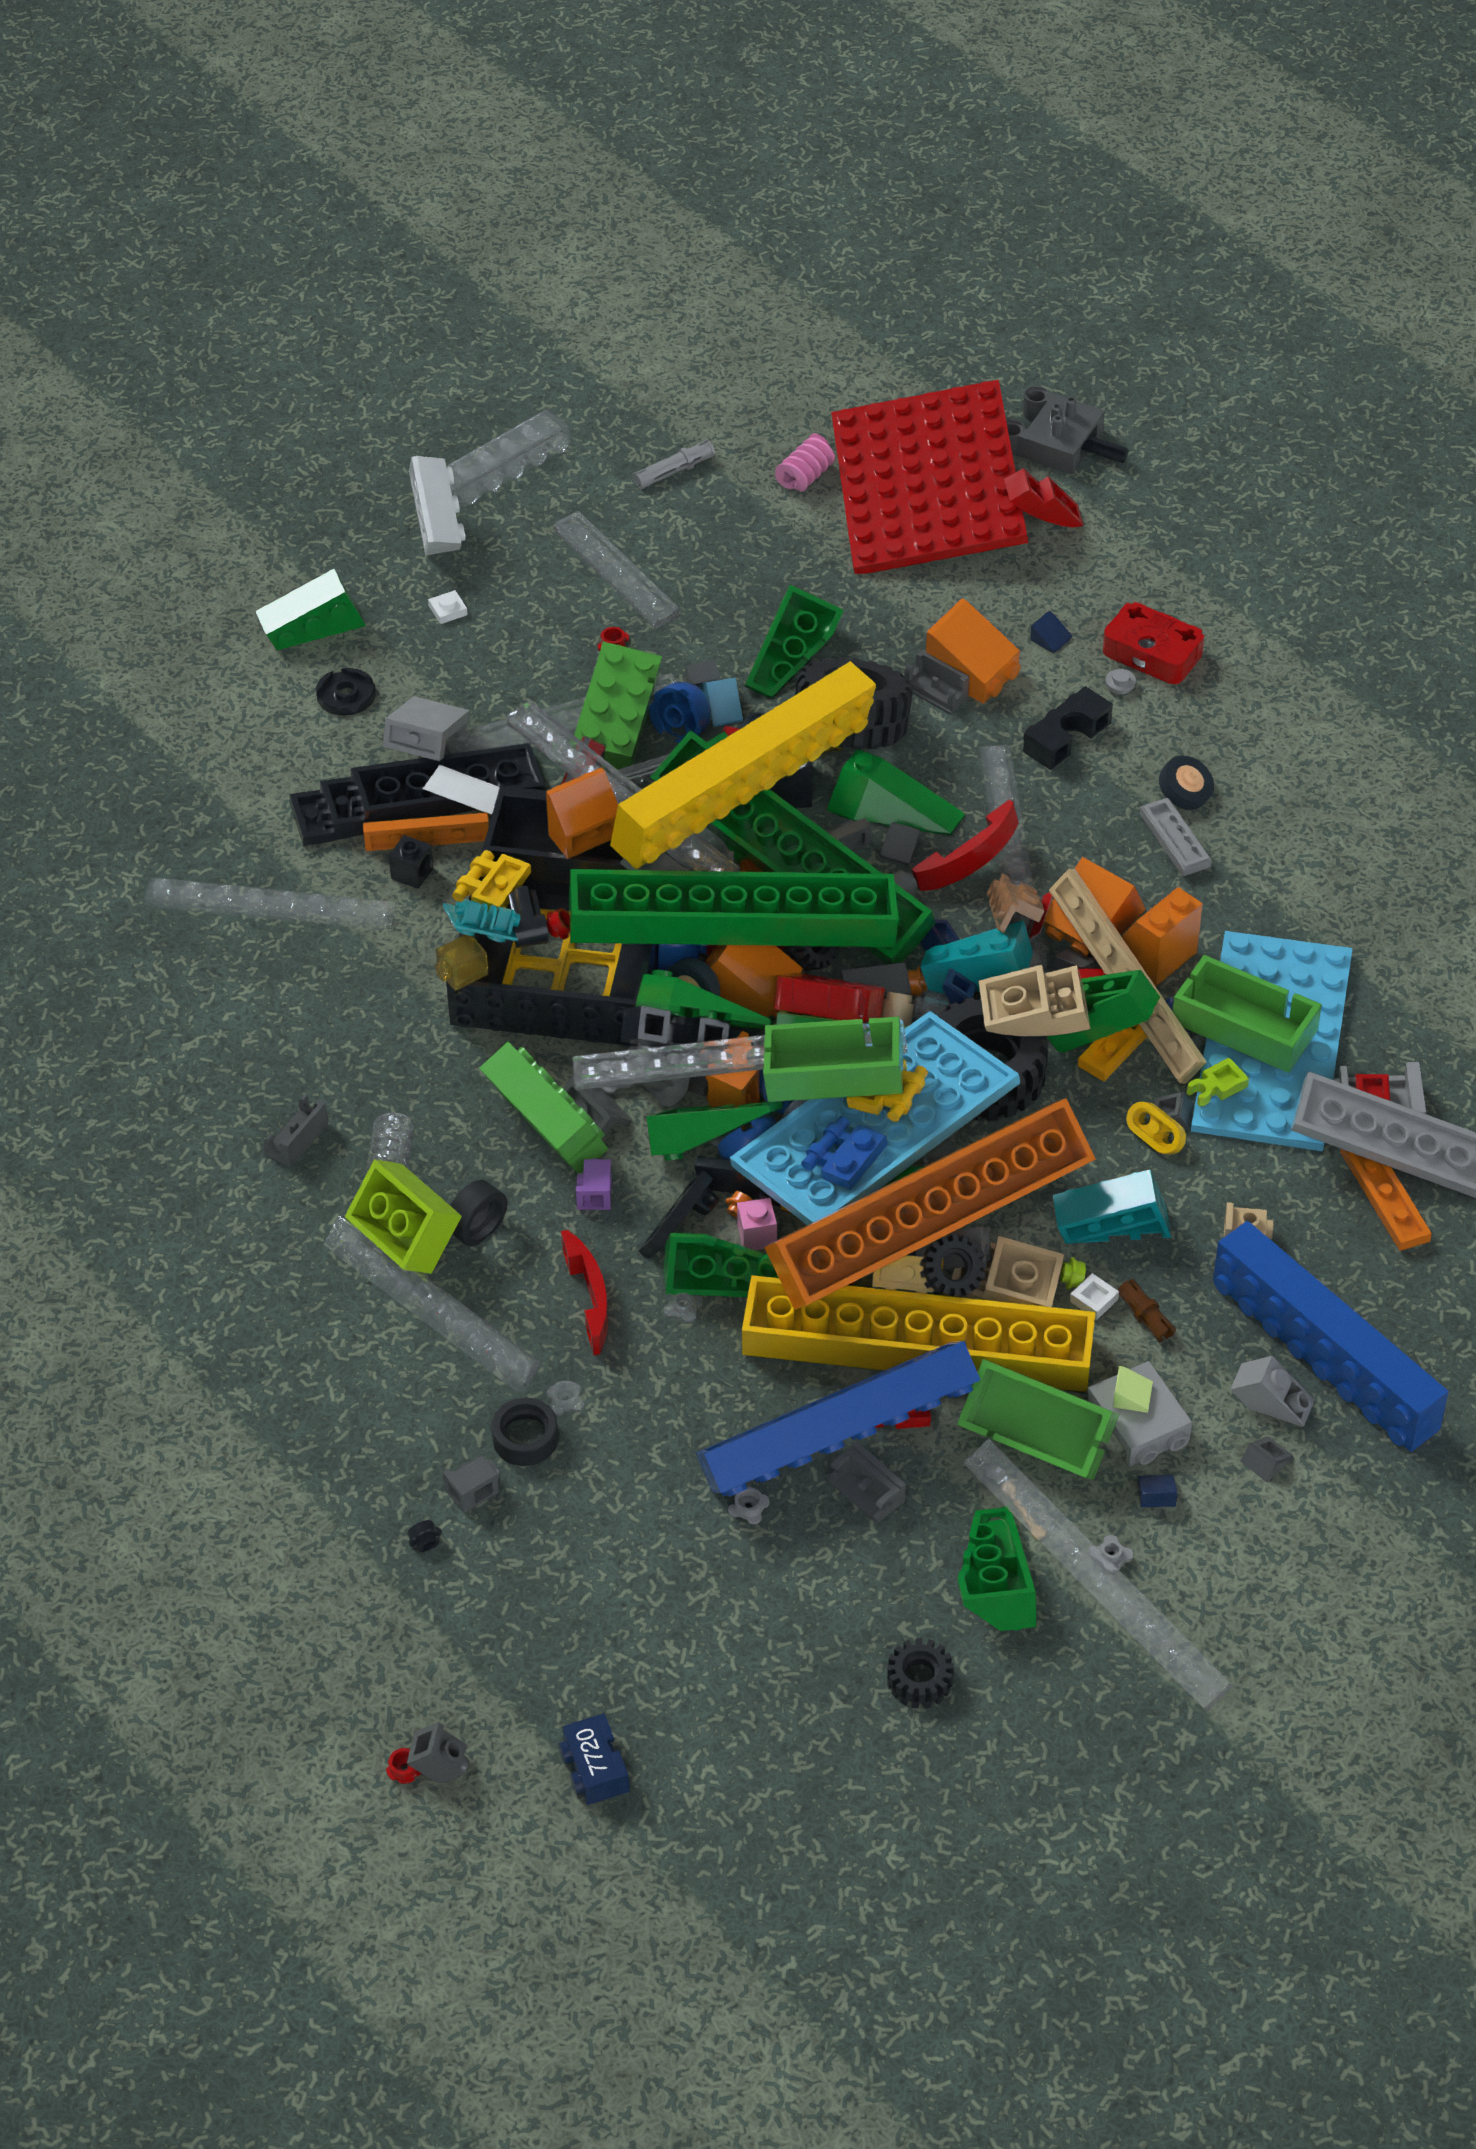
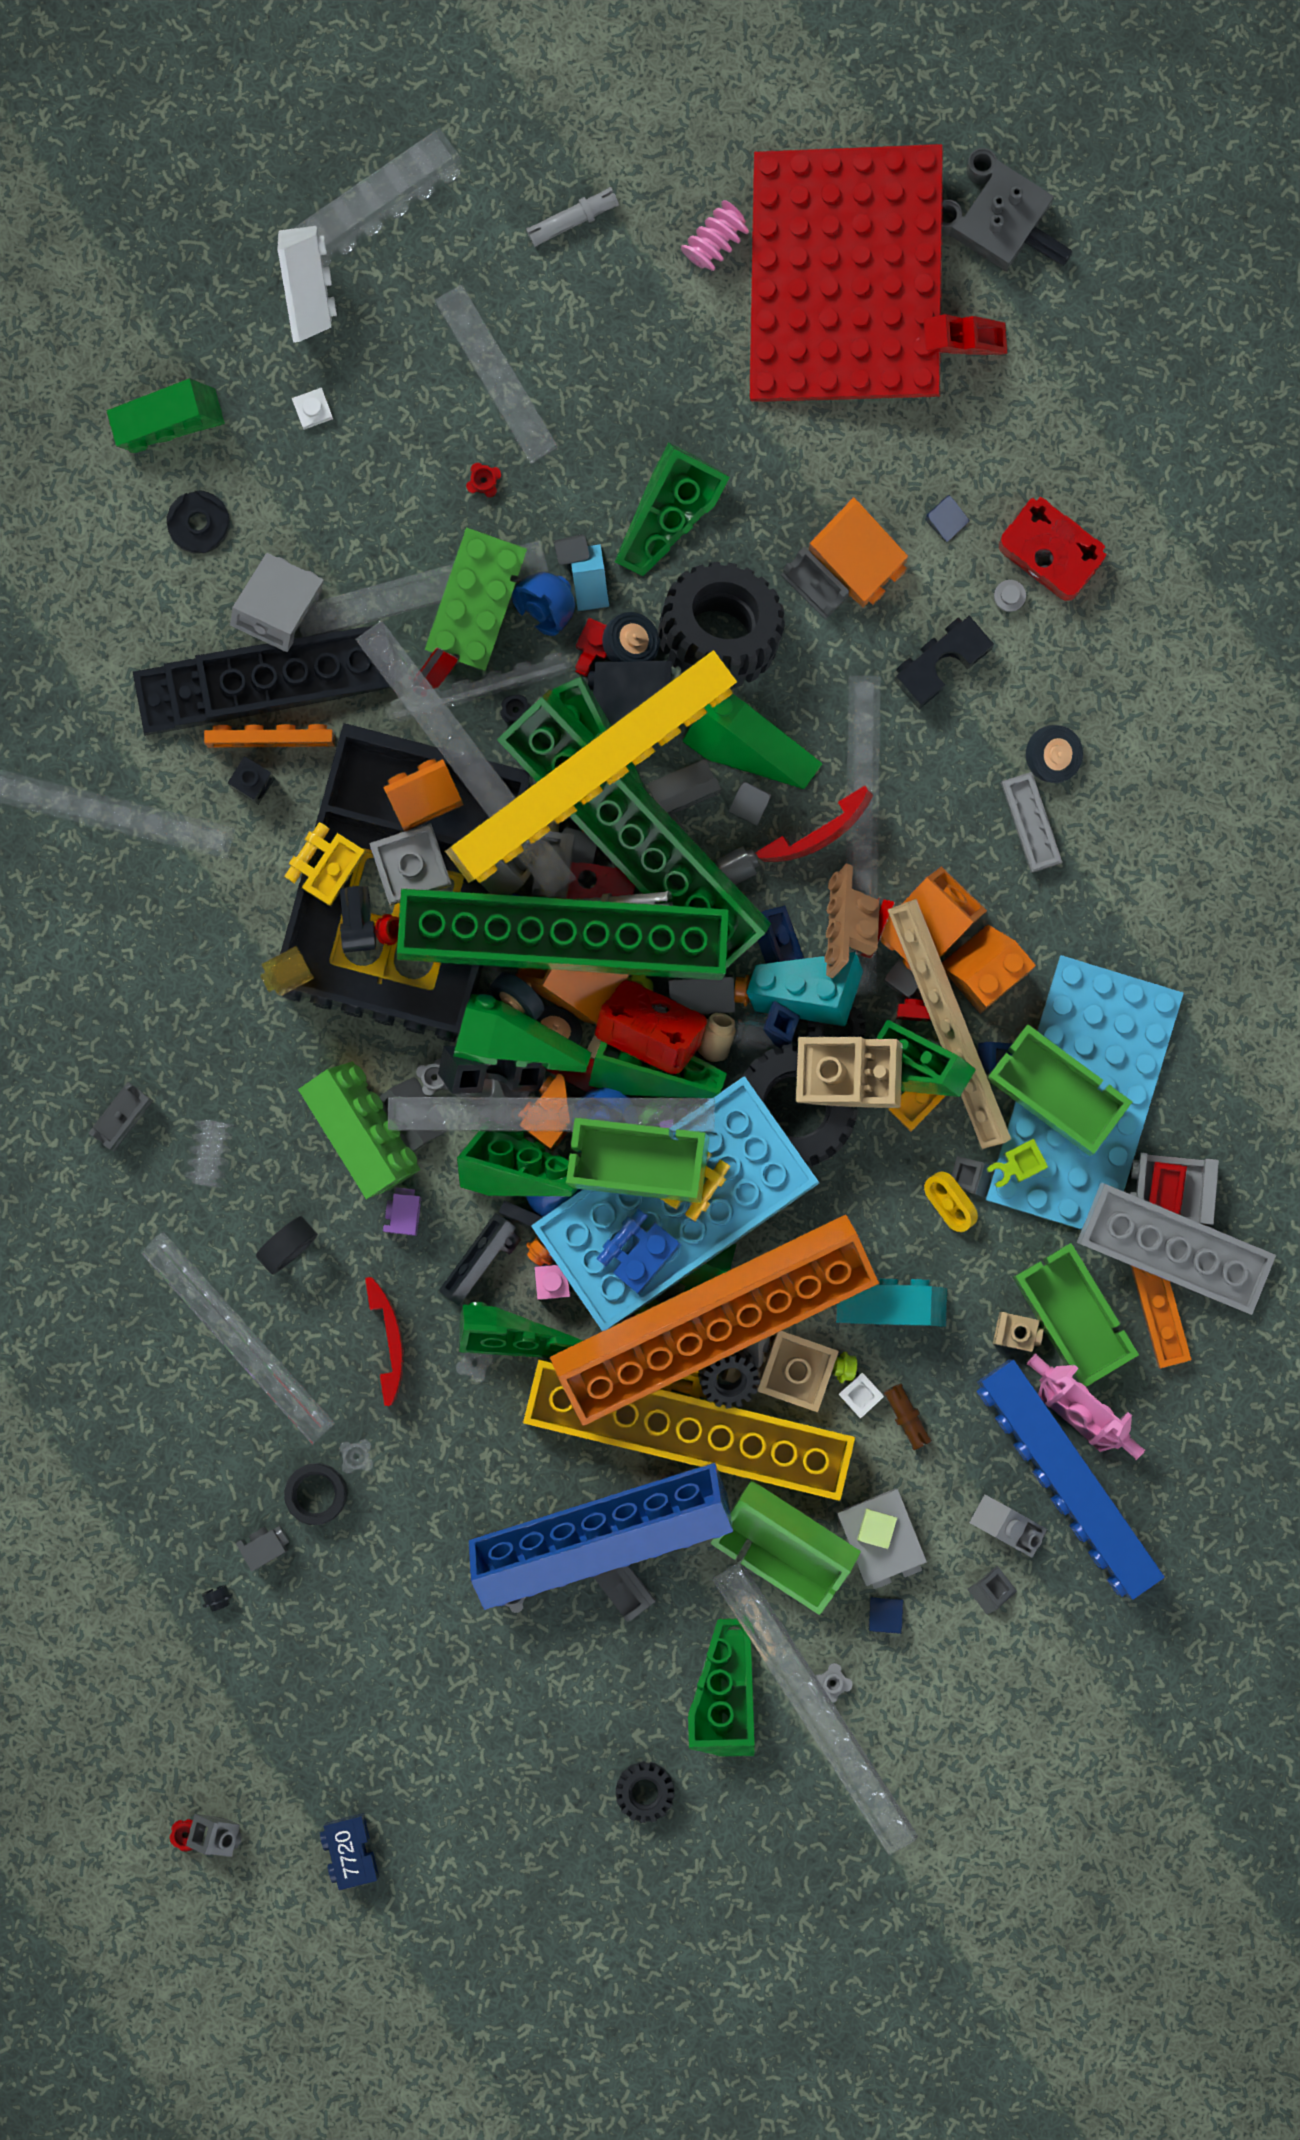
camera: 10 degrees right, 35 degrees up
(403, 1216) = (215, 1252): lime brick -> none
(463, 789) = (312, 691): white sticker -> none
(473, 918) = (308, 930): teal hinge -> none
(555, 872) = (410, 862): none -> light grey tile
(1303, 1202) = (1075, 1315): none -> bright green piece
(1354, 1278) = (1082, 1409): none -> bright pink plate

